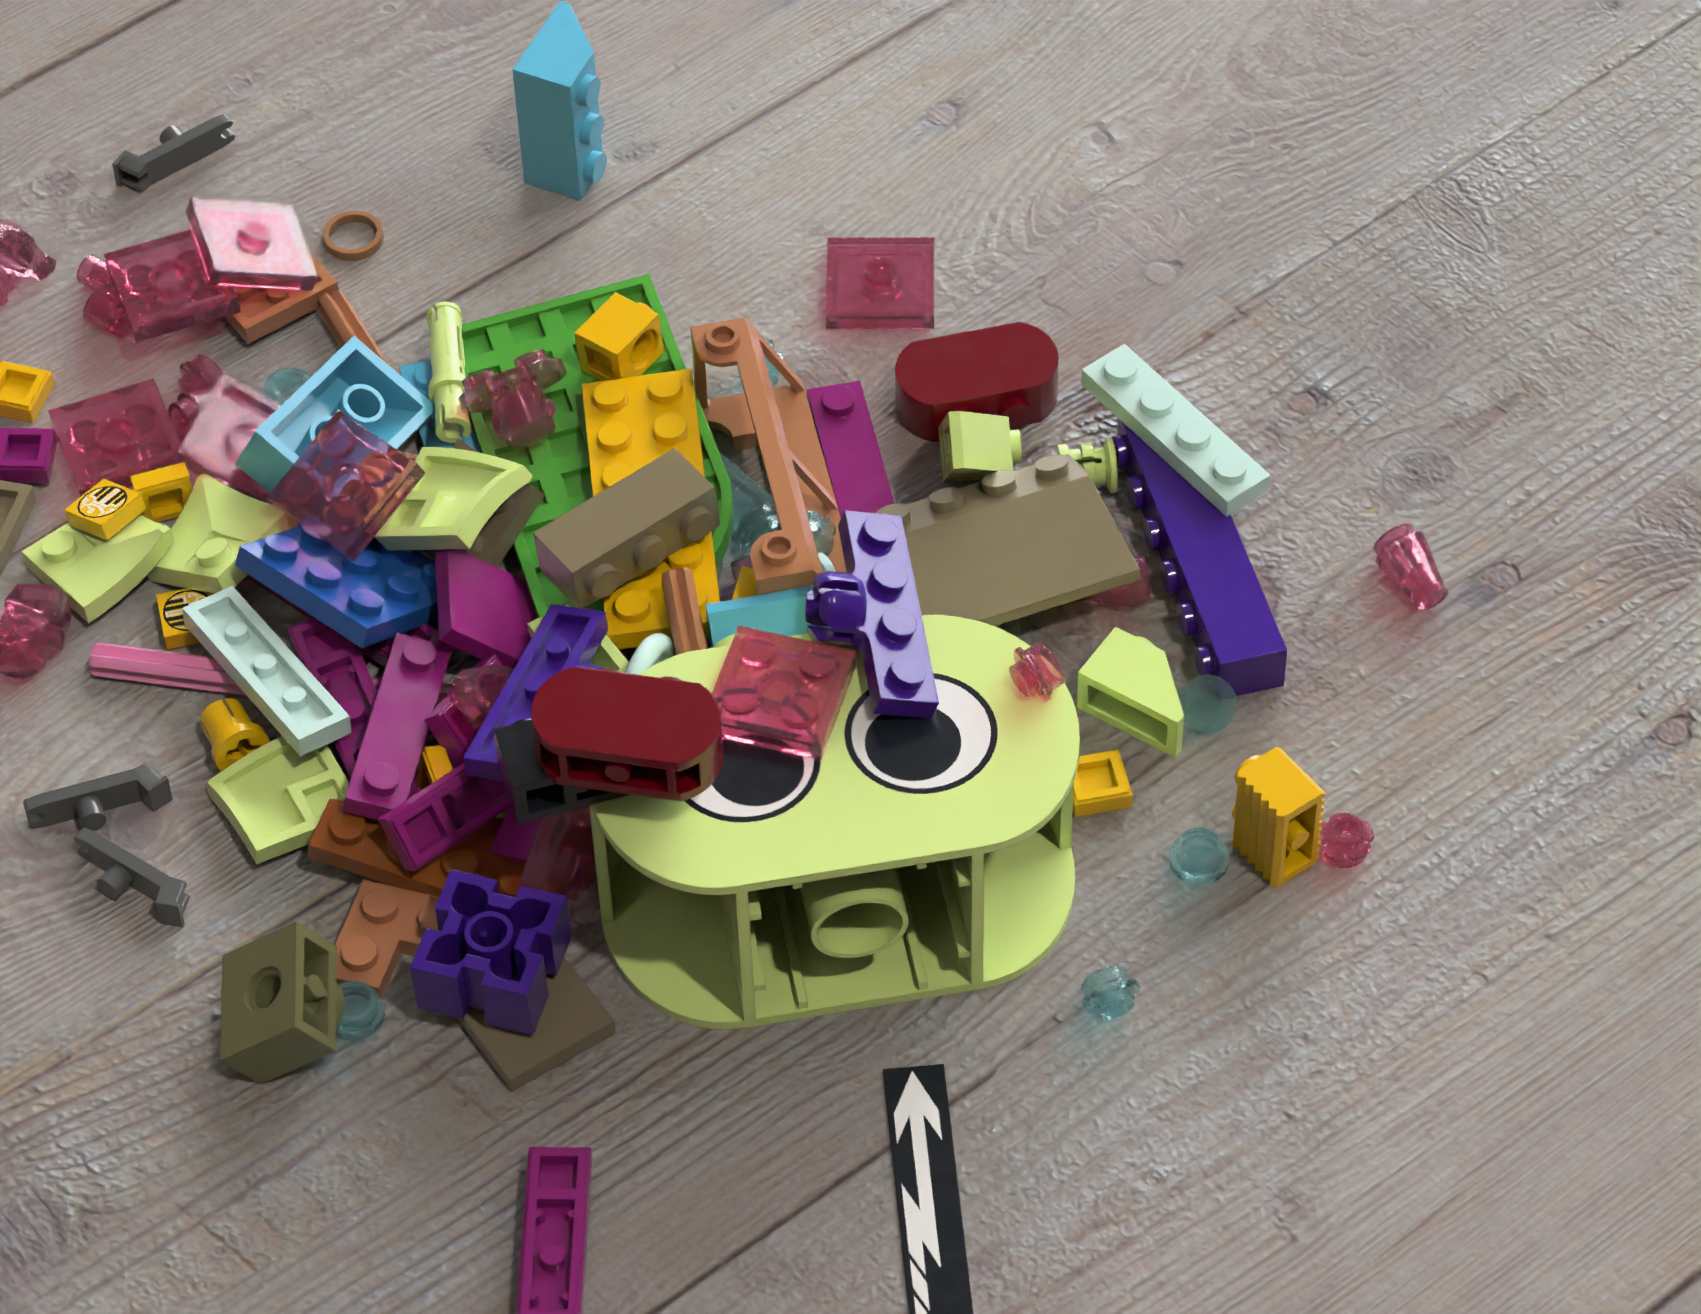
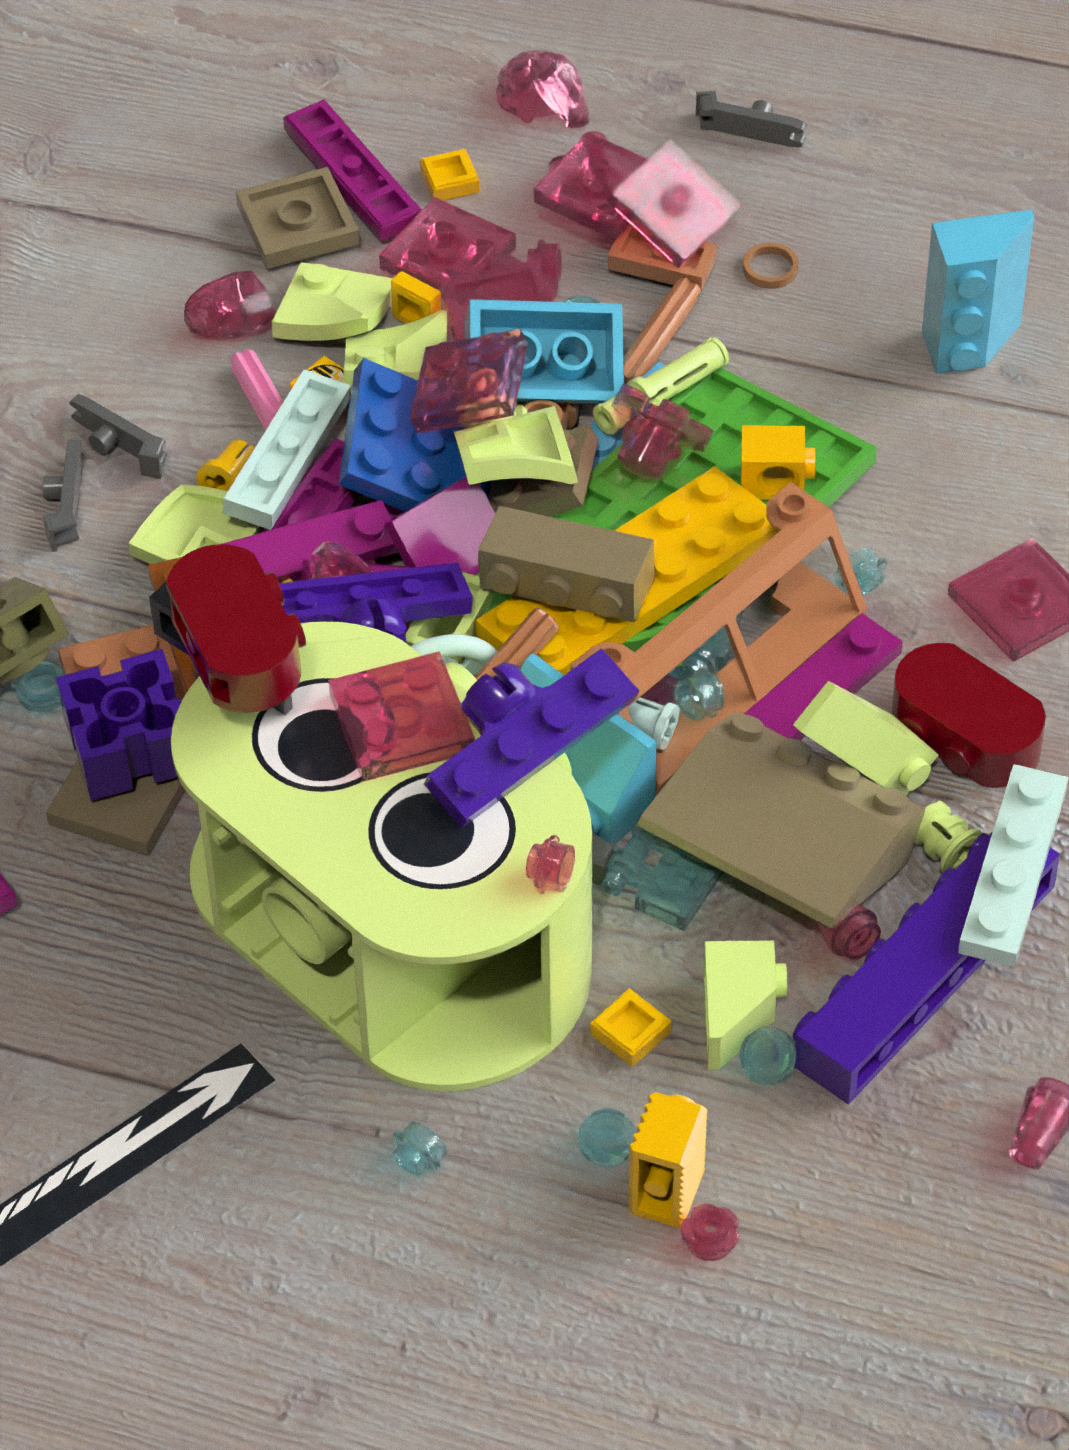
camera: 55 degrees right, 0 degrees up
(105, 509) = (365, 278): yellow tile -> none

